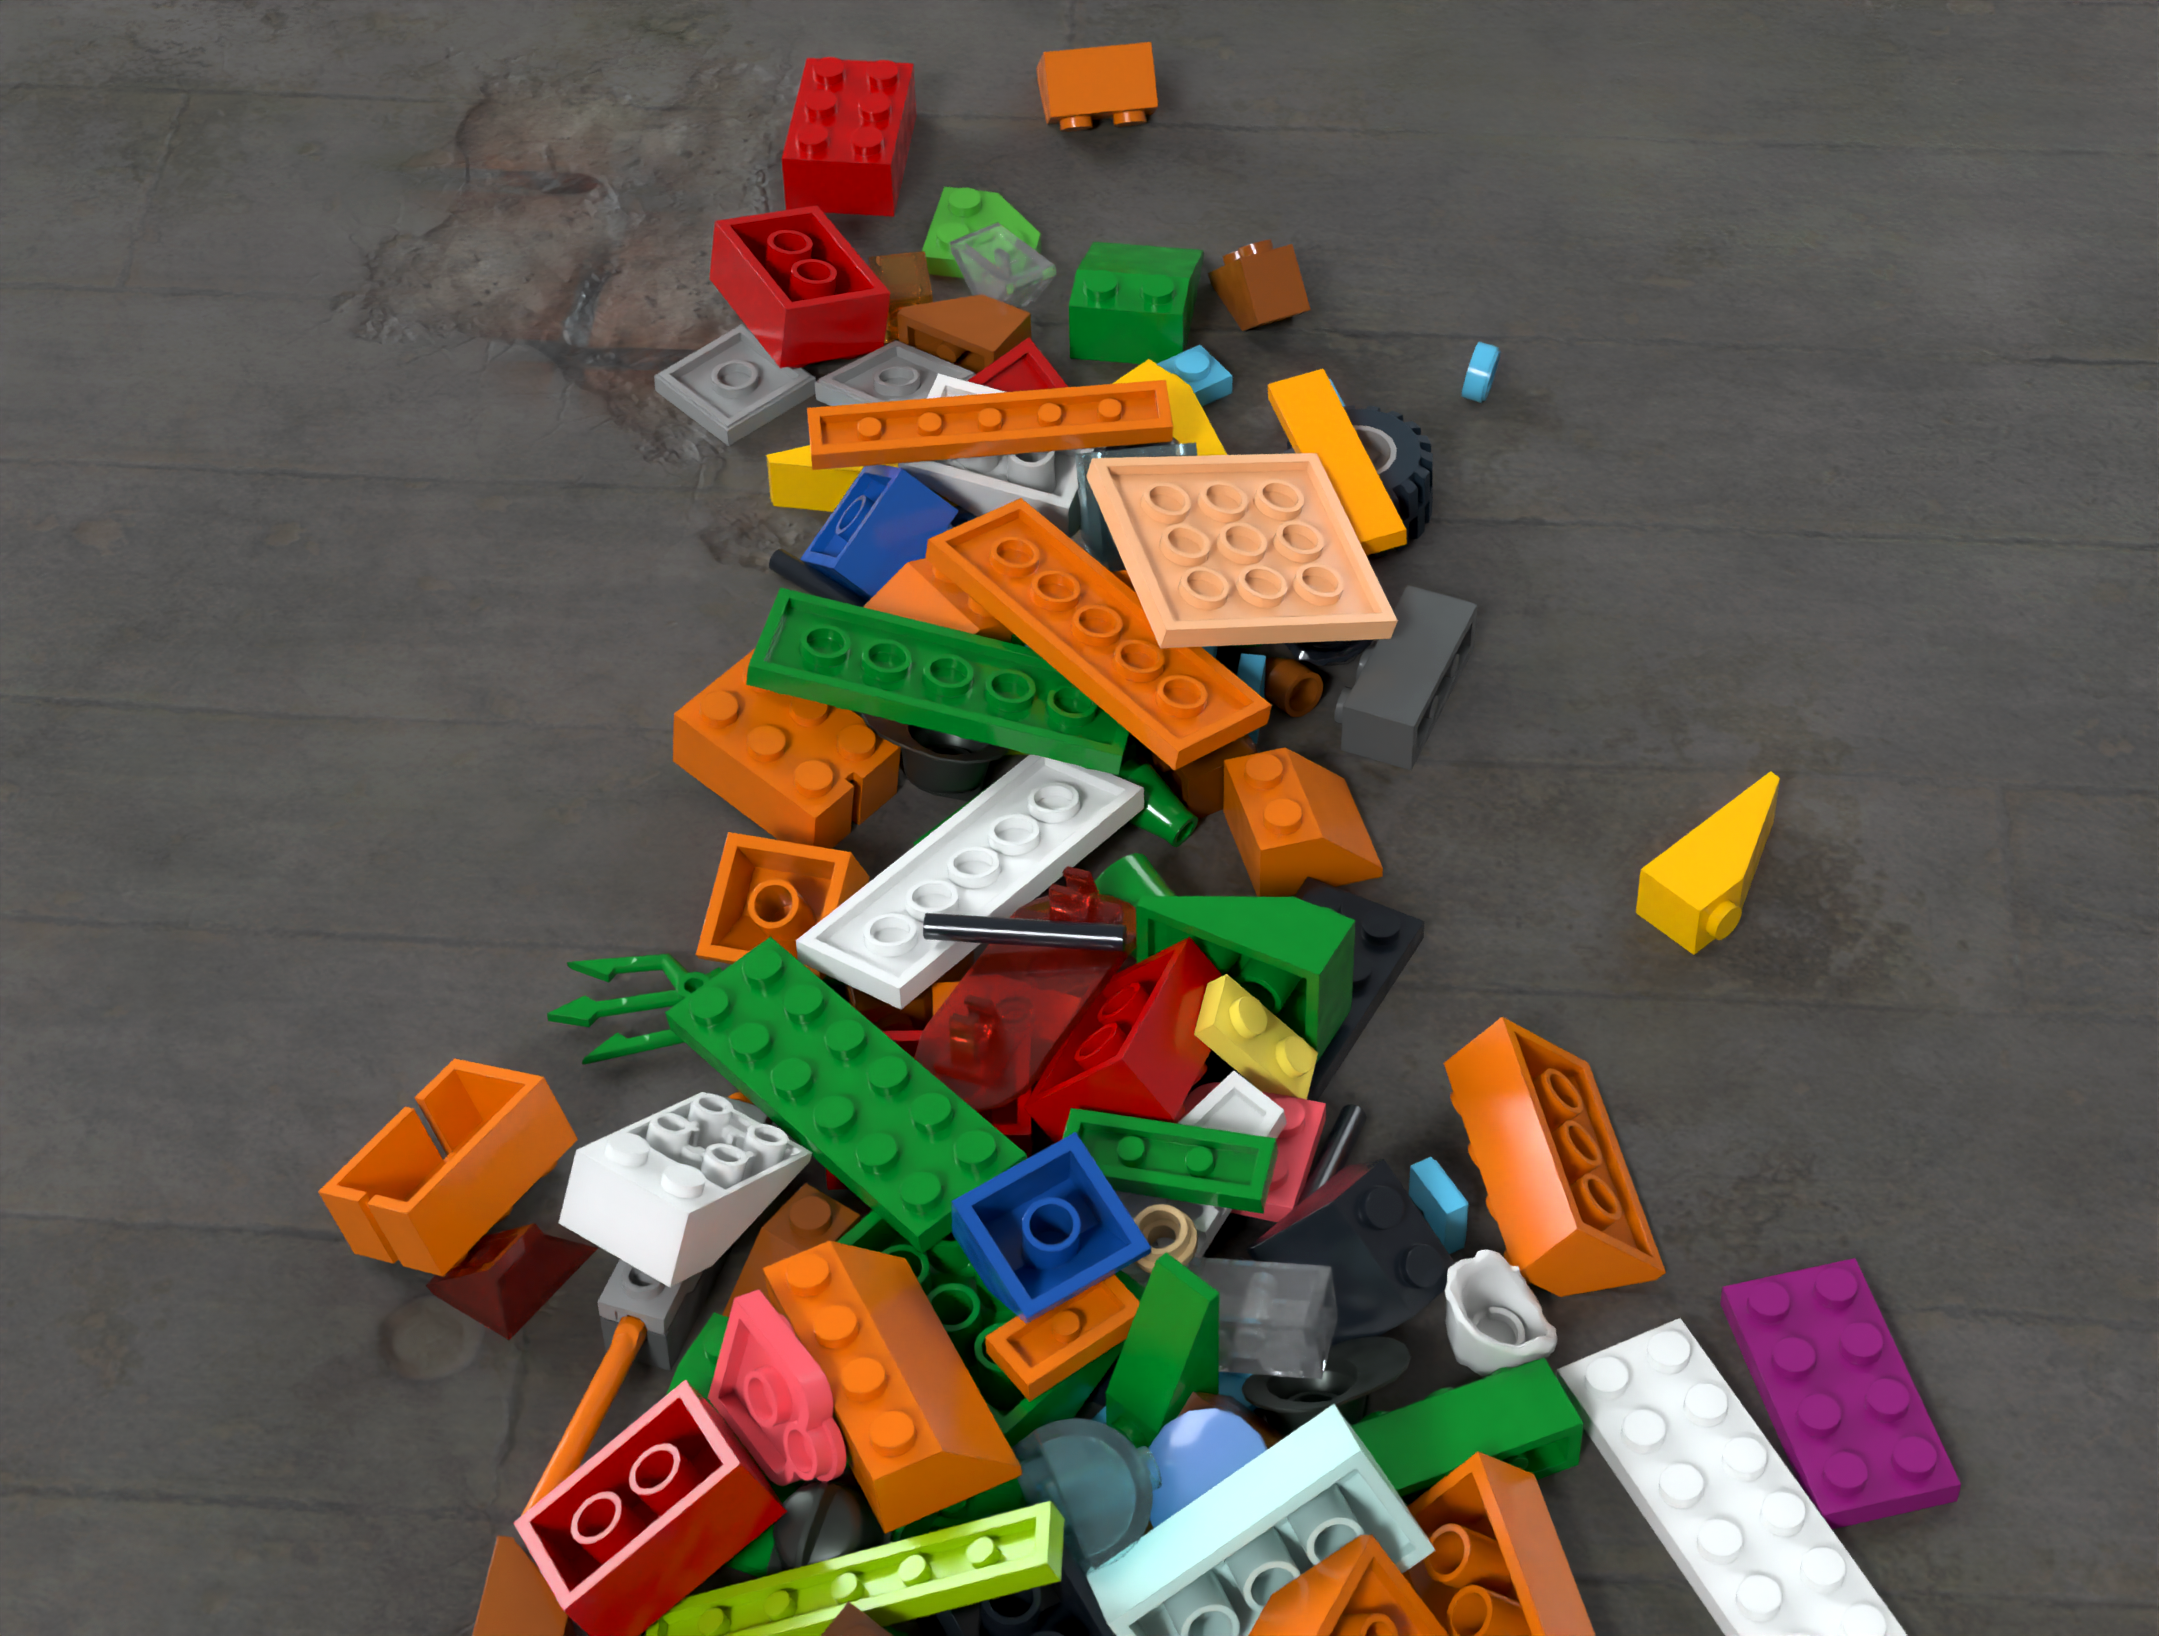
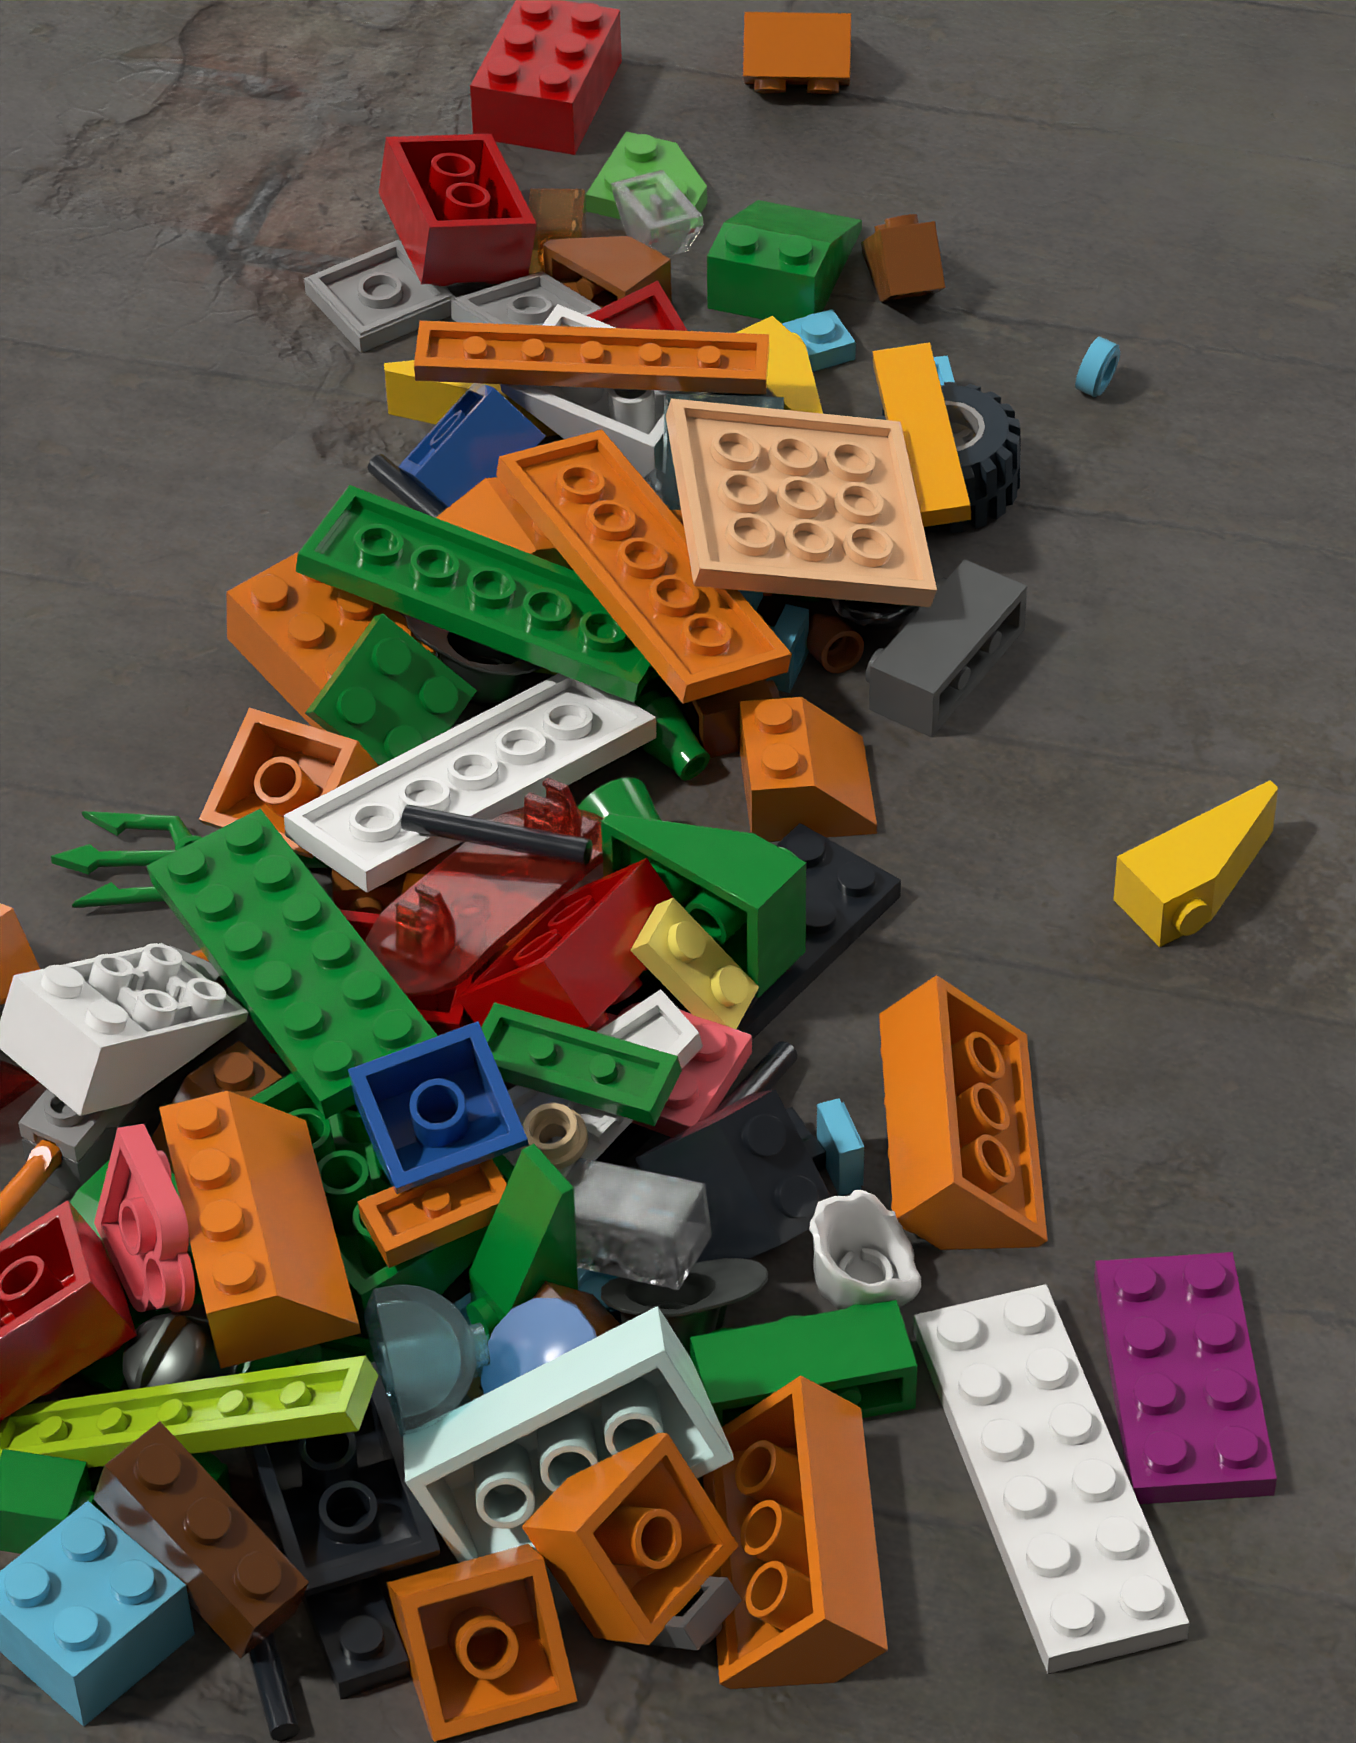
camera: 10 degrees right, 0 degrees up
(867, 799) = (390, 693): none -> green plate

